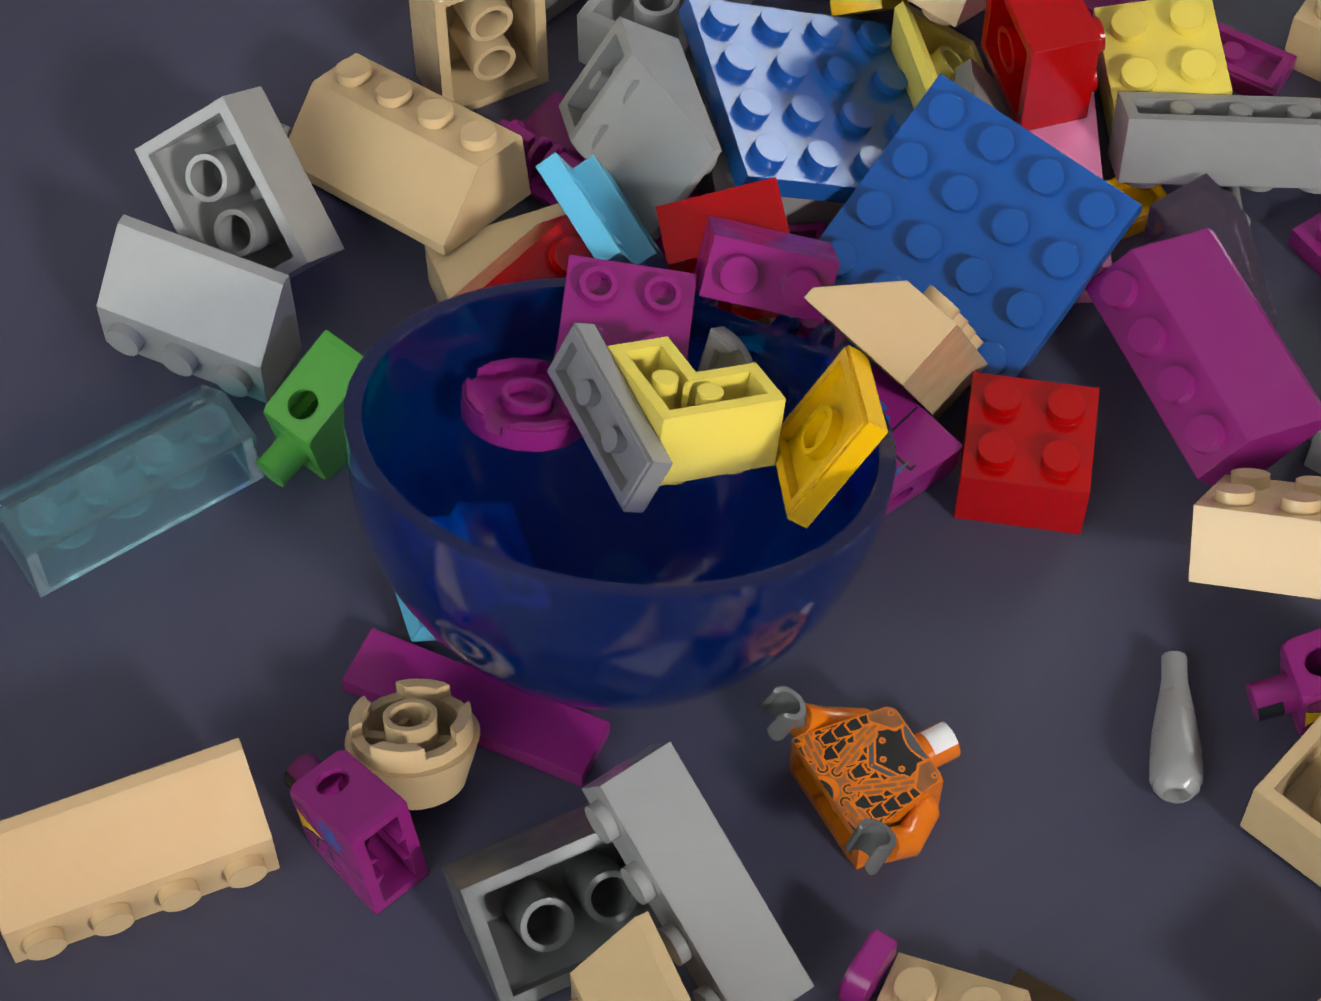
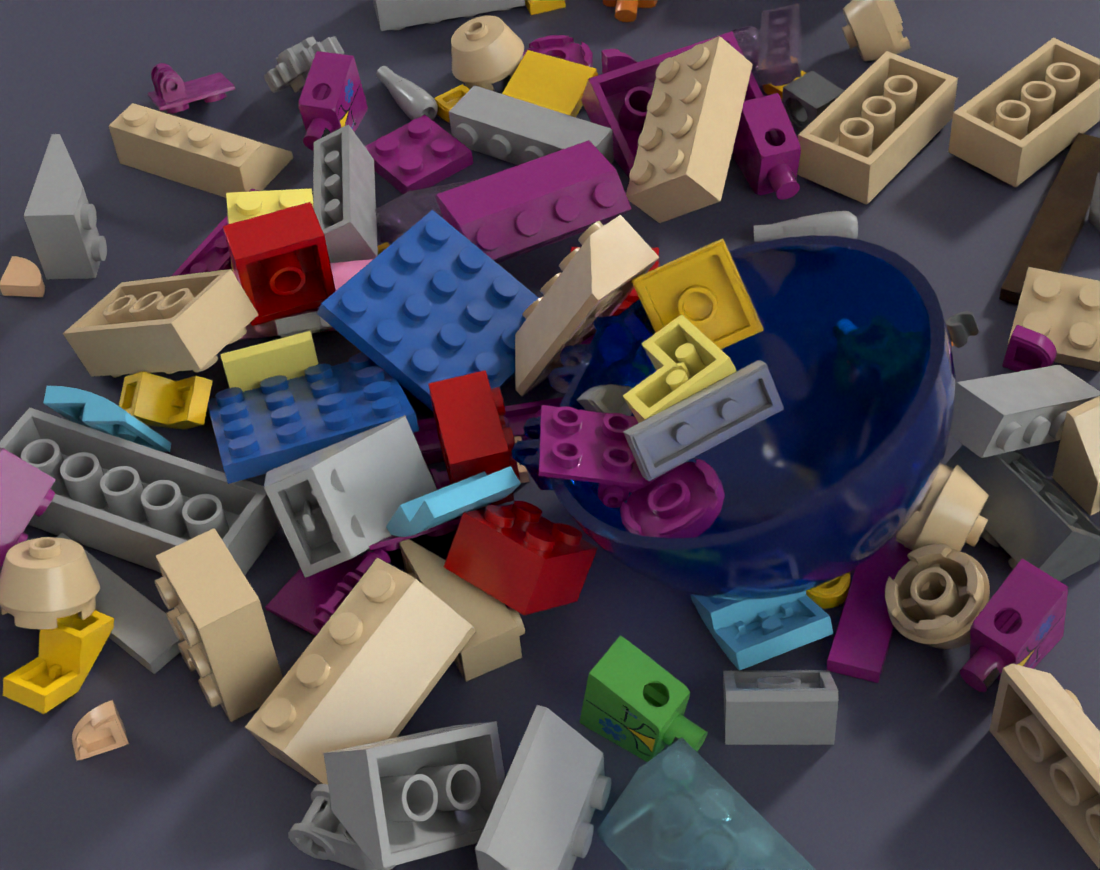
camera: 90 degrees left, 10 degrees down
(318, 566) = (780, 707): none -> light grey slope
(531, 758) = (947, 513): none -> tan cone
(763, 267) = (522, 377): magenta brick -> none

